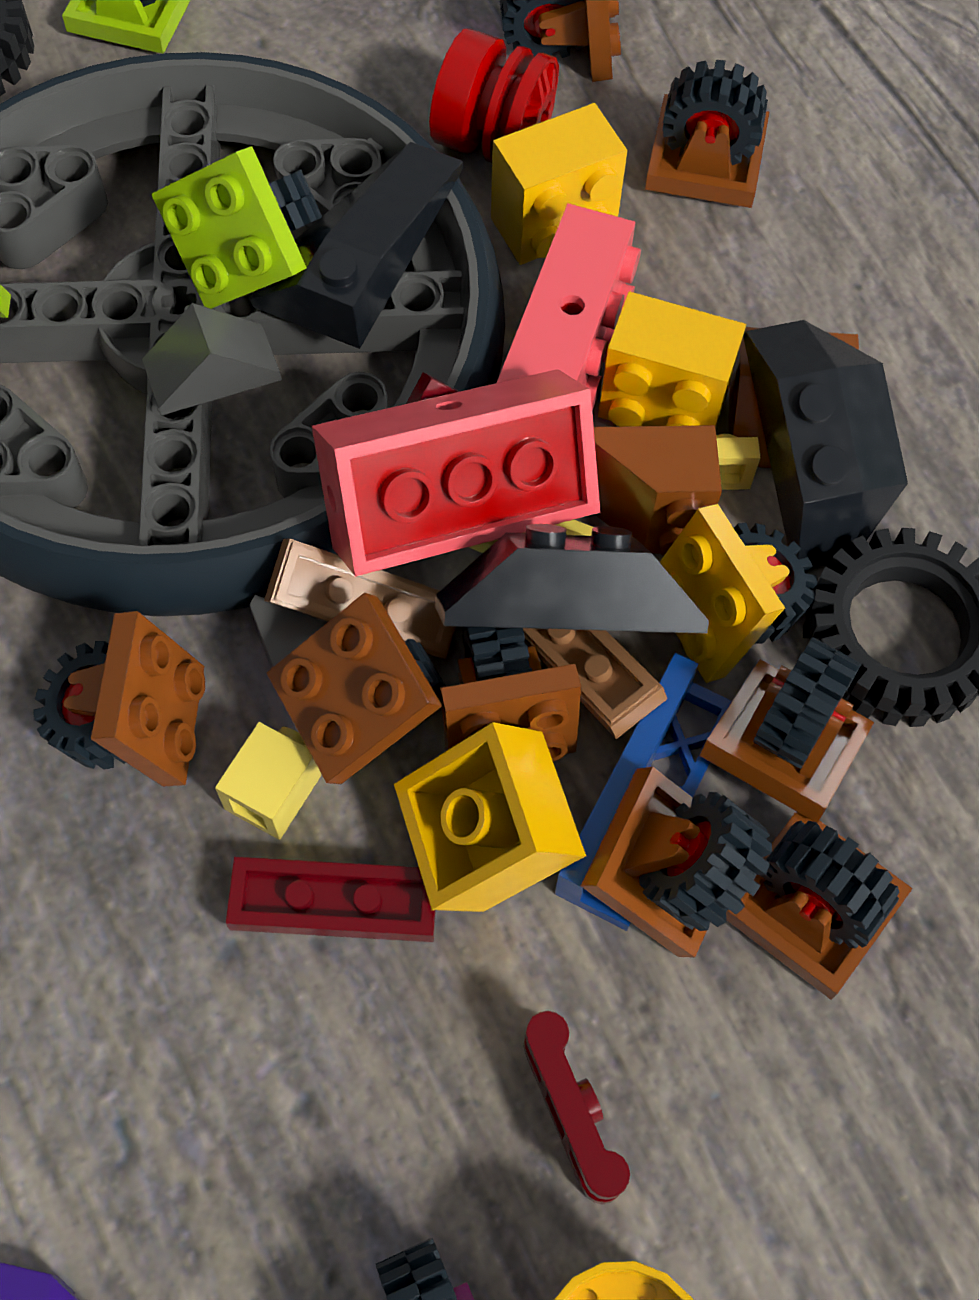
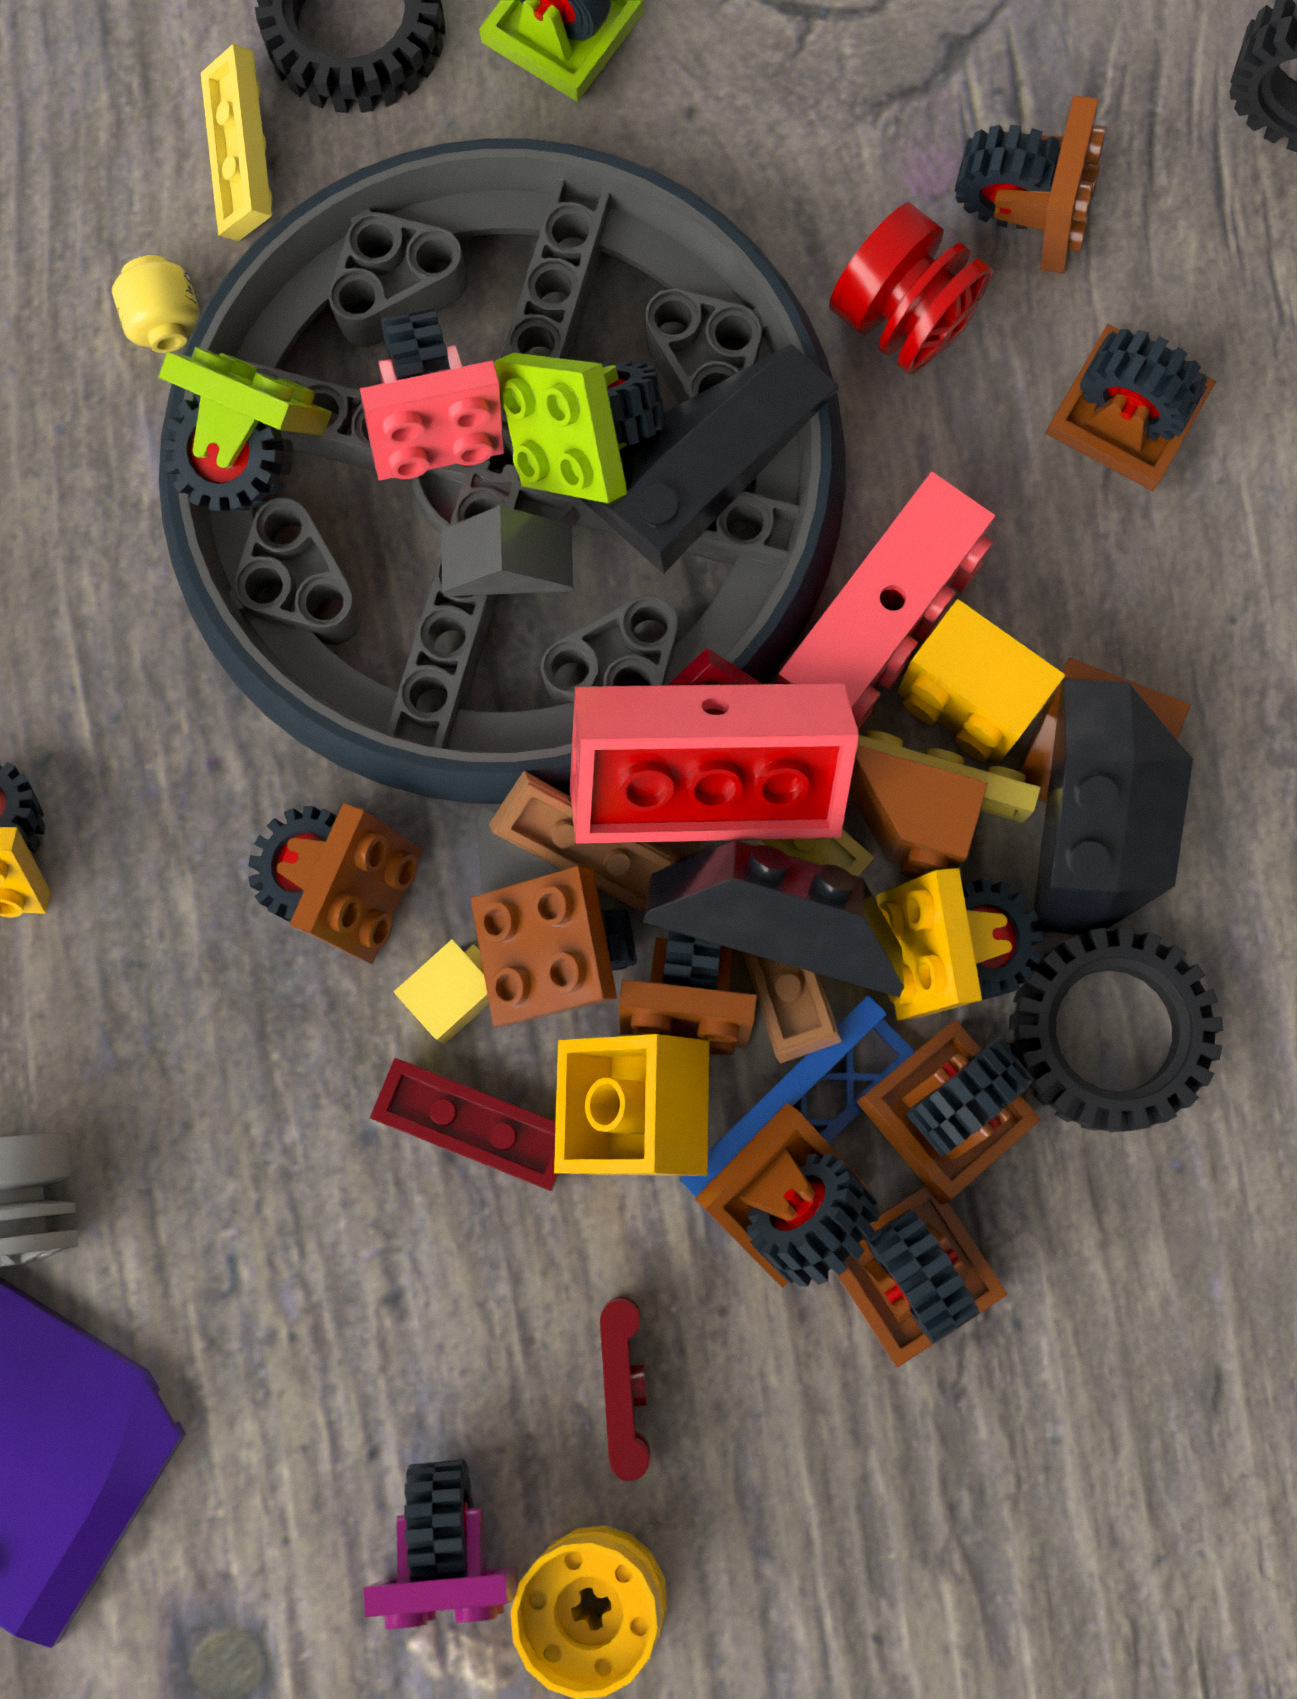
camera: 25 degrees right, 15 degrees up
(103, 251) = (428, 404): none -> coral plate
(550, 165) = (942, 418): yellow brick -> none

